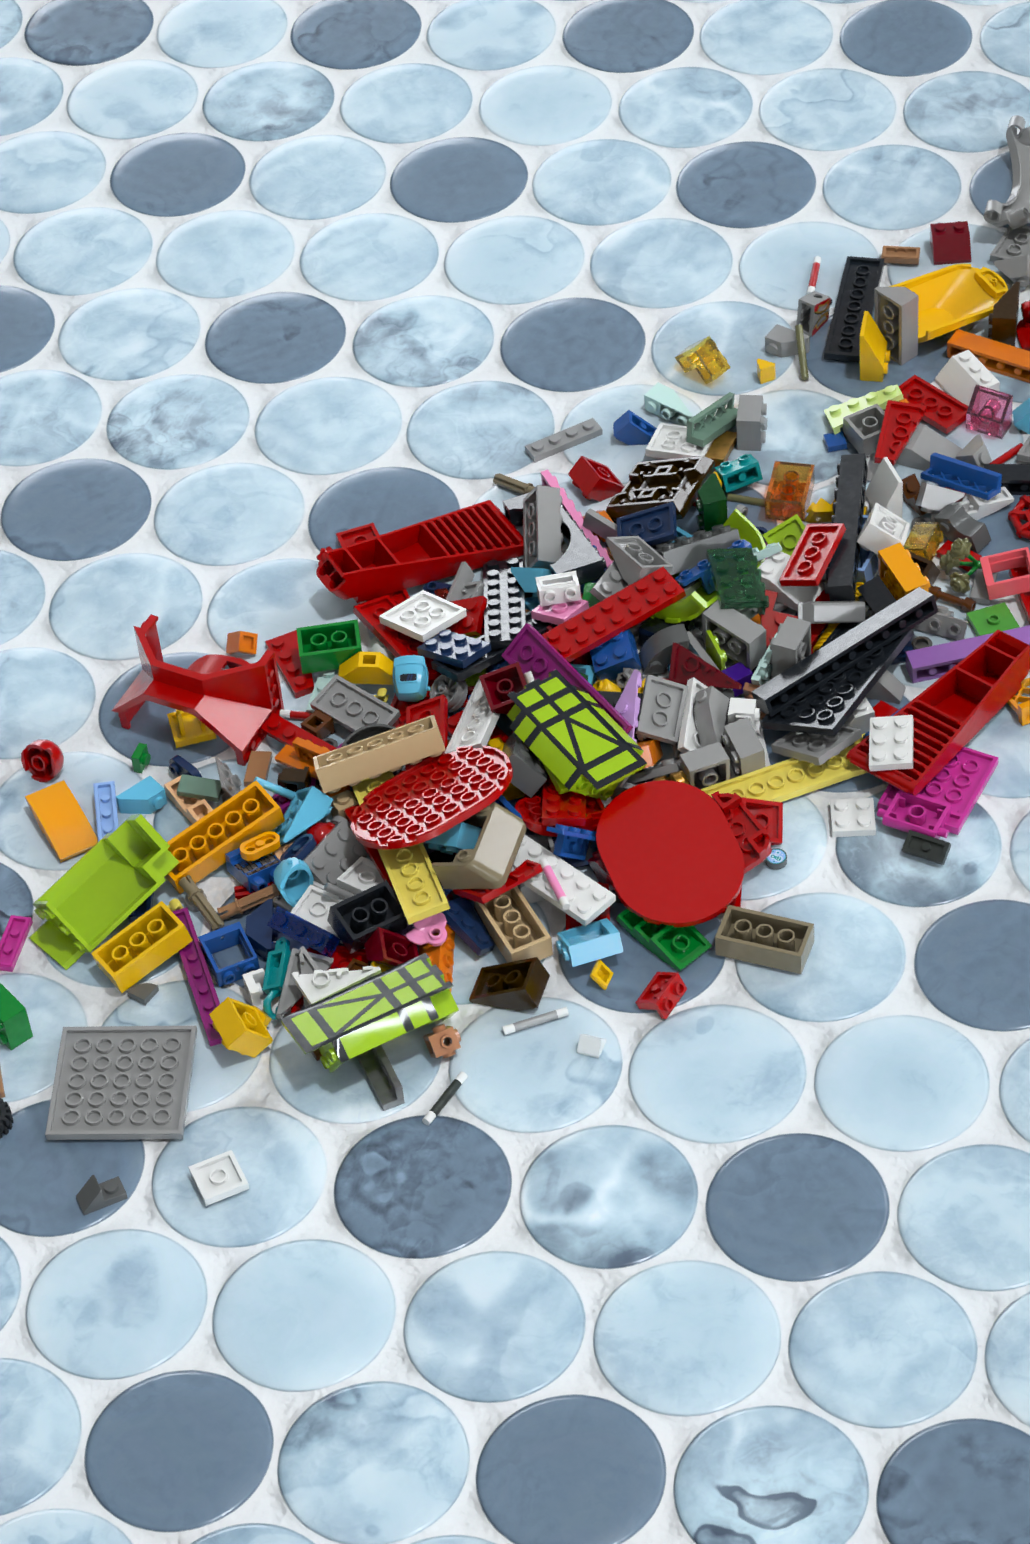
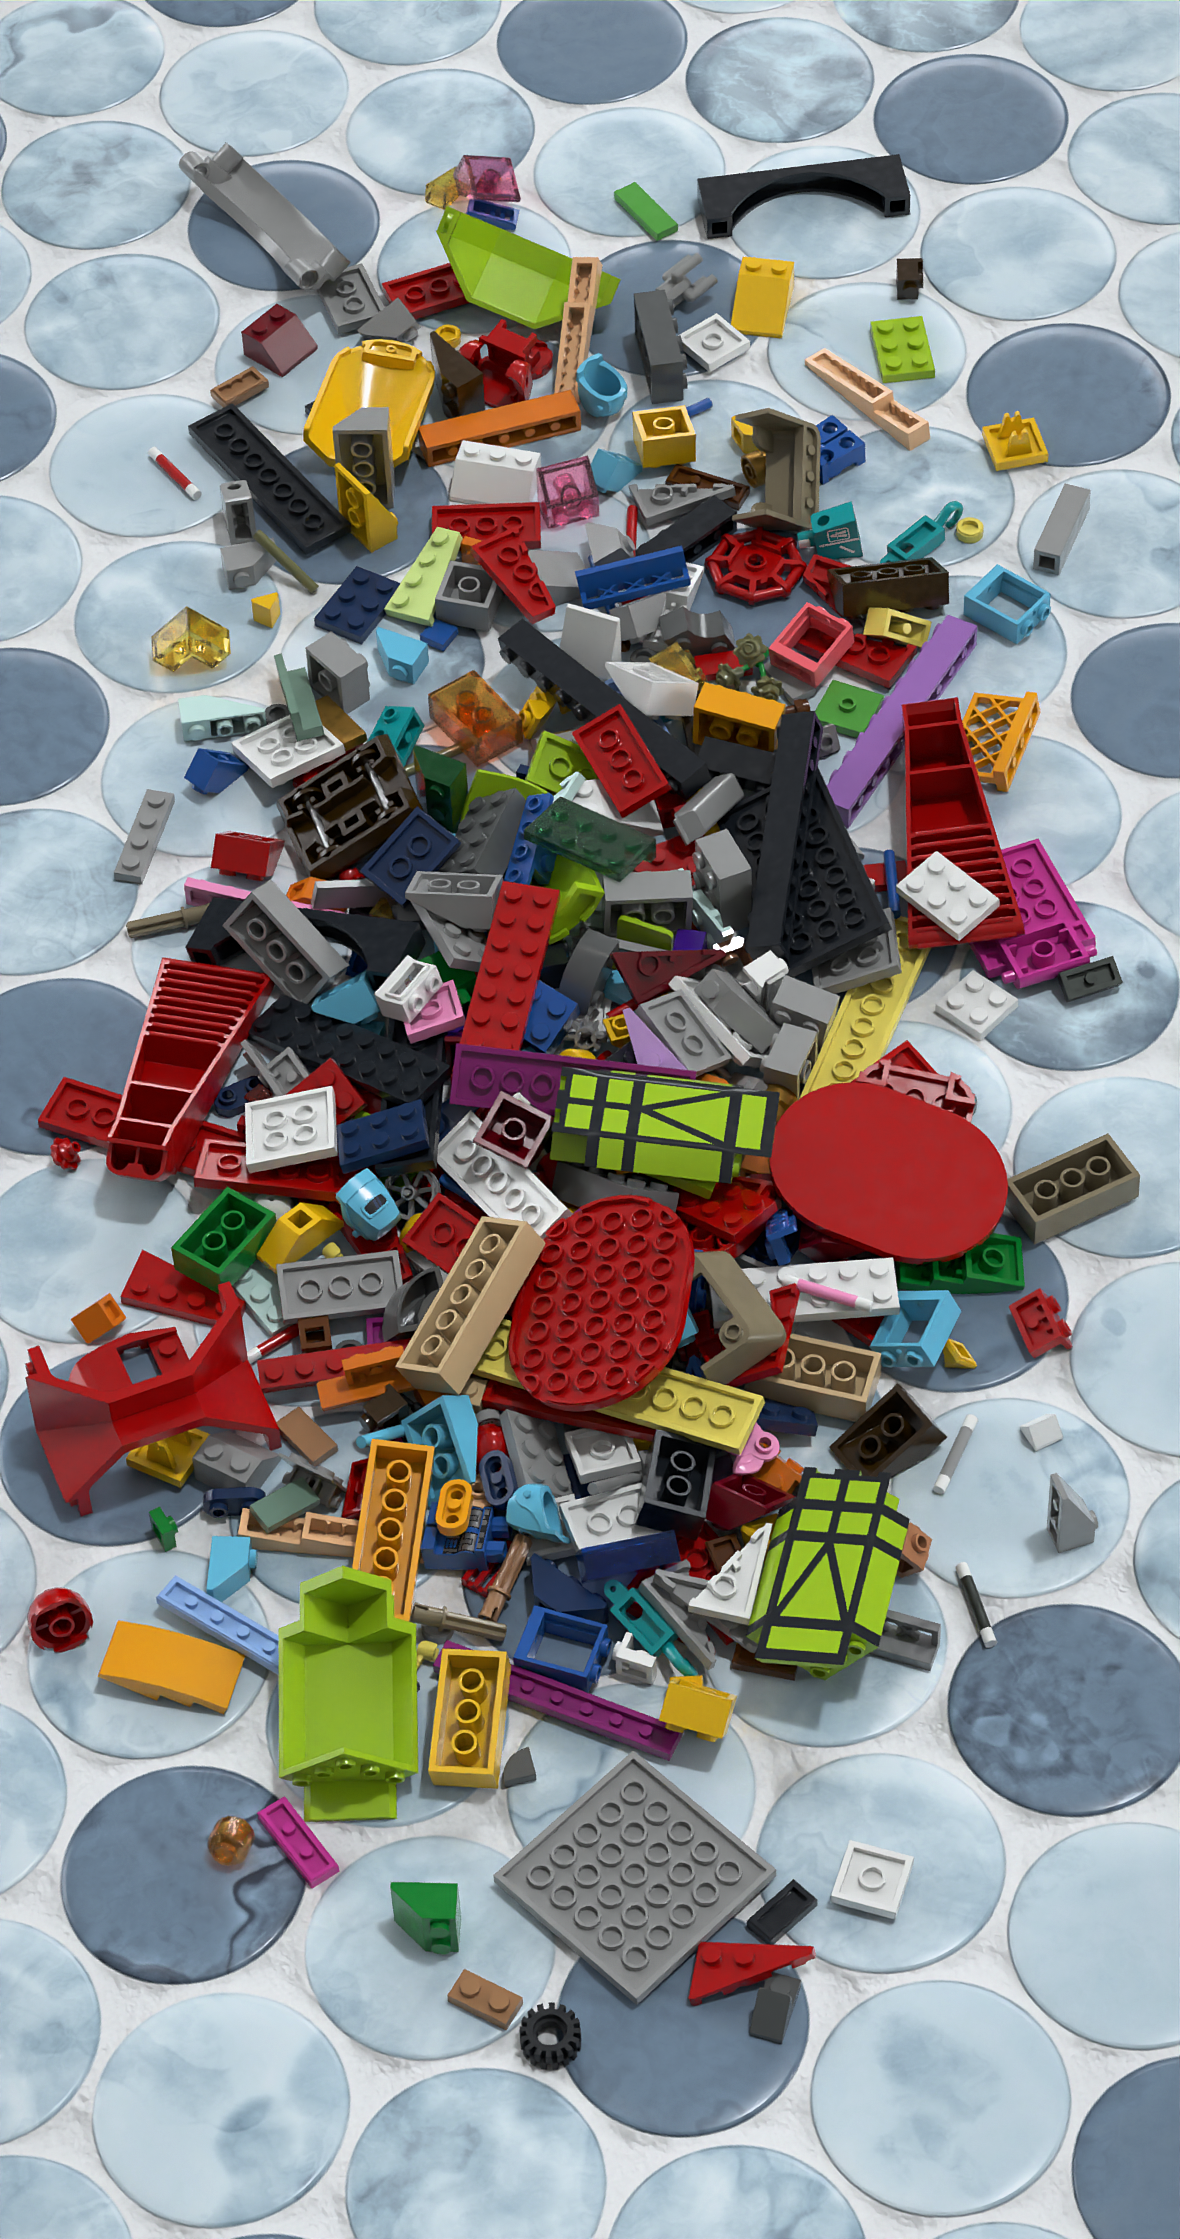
camera: 50 degrees left, 5 degrees up
(107, 1160) = (740, 1964): none -> red wing
(163, 1157) = (782, 1912): none -> black tile
(205, 747) = (233, 1462): none -> light grey slope
(534, 1088) = (1068, 1517): none -> light grey slope
(799, 438) = (402, 655): none -> medium azure slope
(813, 399) = (357, 605): none -> dark blue plate

